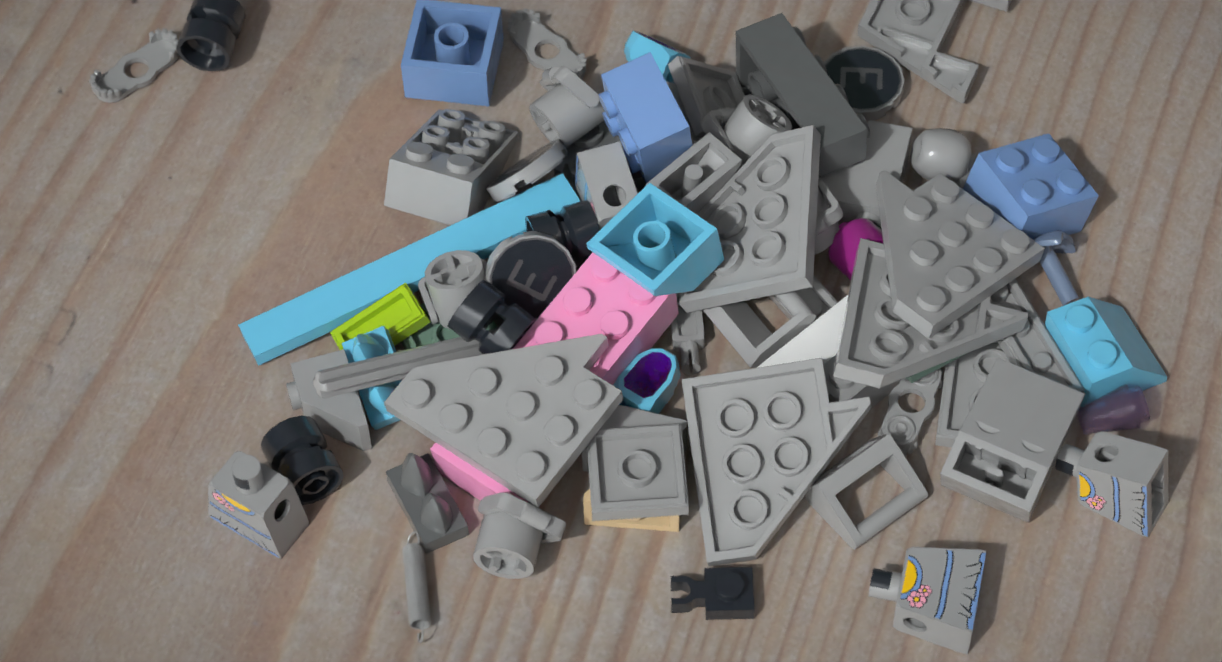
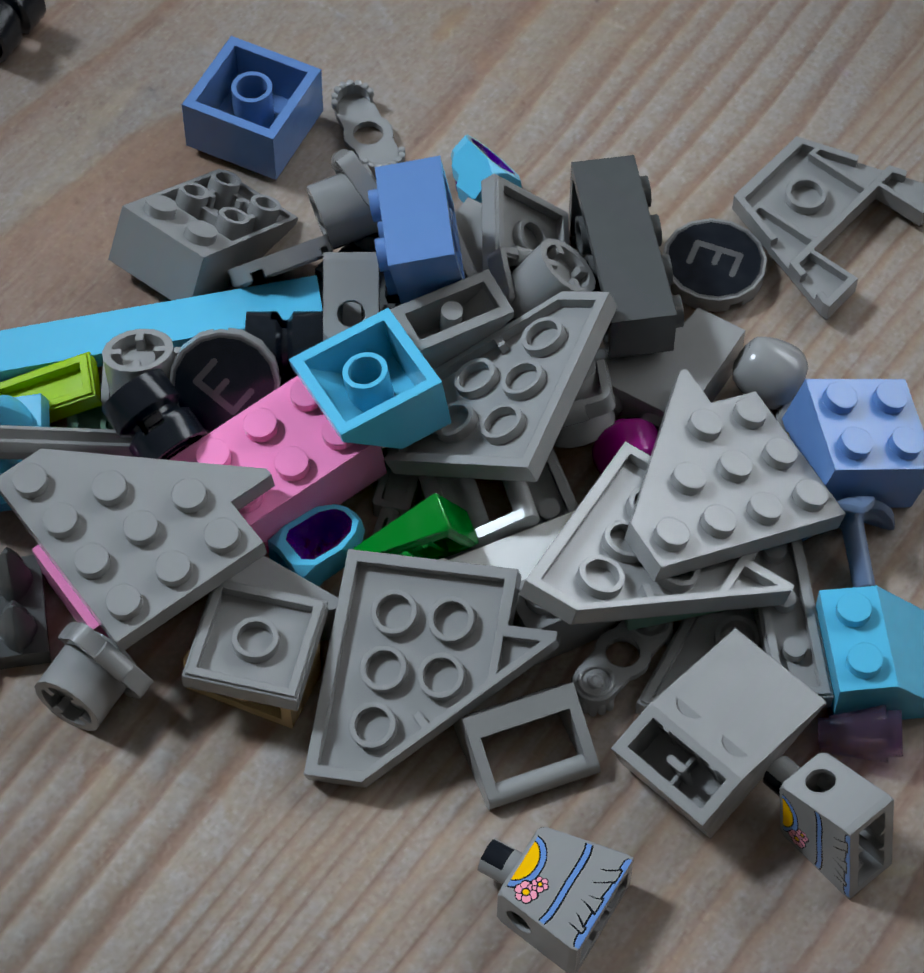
camera: 15 degrees right, 0 degrees up
(724, 593) = (310, 818): black plate -> none
(732, 350) = (426, 531): none -> green slope

